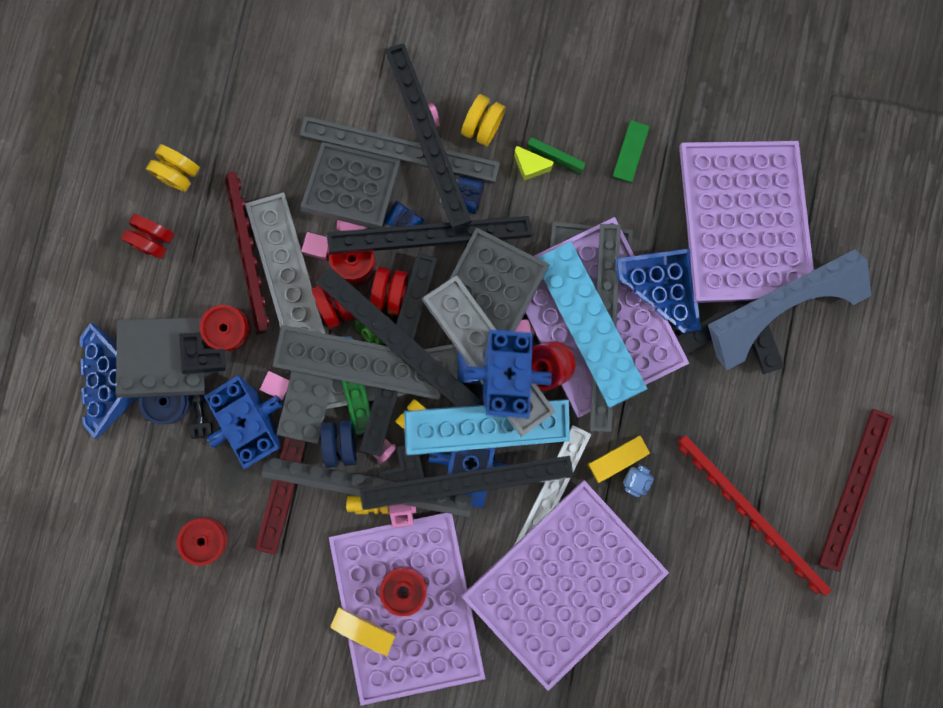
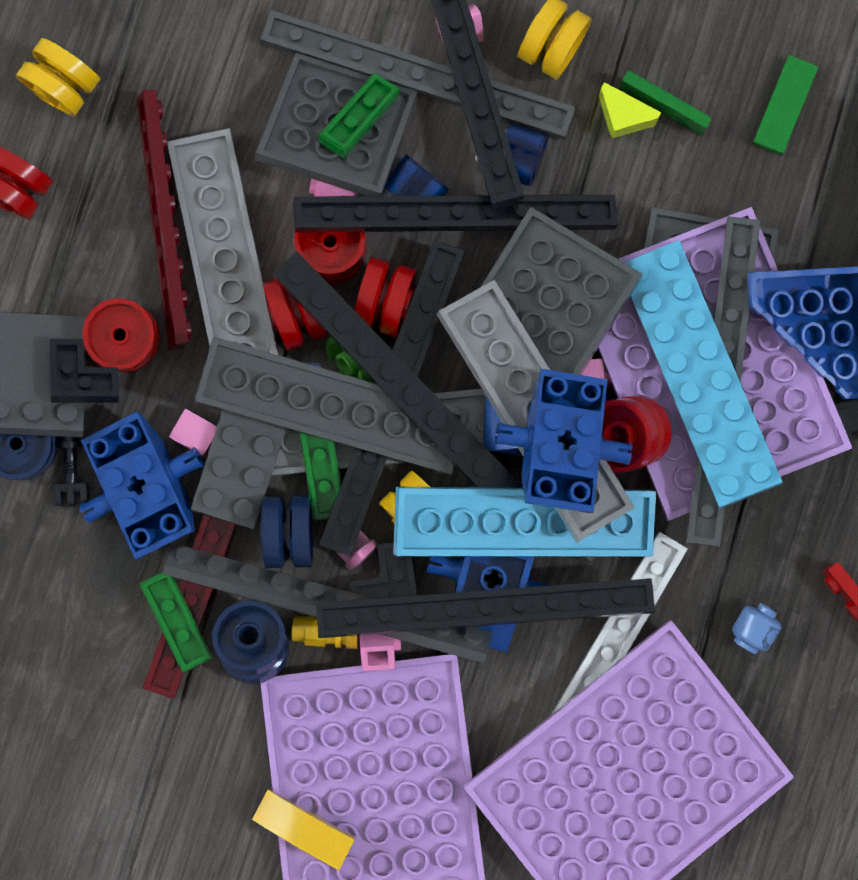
camera: 10 degrees right, 0 degrees up
(215, 541) = (81, 663): red wheel -> none
(273, 506) = (176, 621): none -> green tile
(315, 246) = (274, 218): bright pink brick -> none
(318, 503) = (247, 623): none -> dark blue wheel
(364, 178) = (359, 115): none -> green tile
(399, 603) = (370, 791): red wheel -> none
(618, 459) = (727, 591): yellow slope -> none

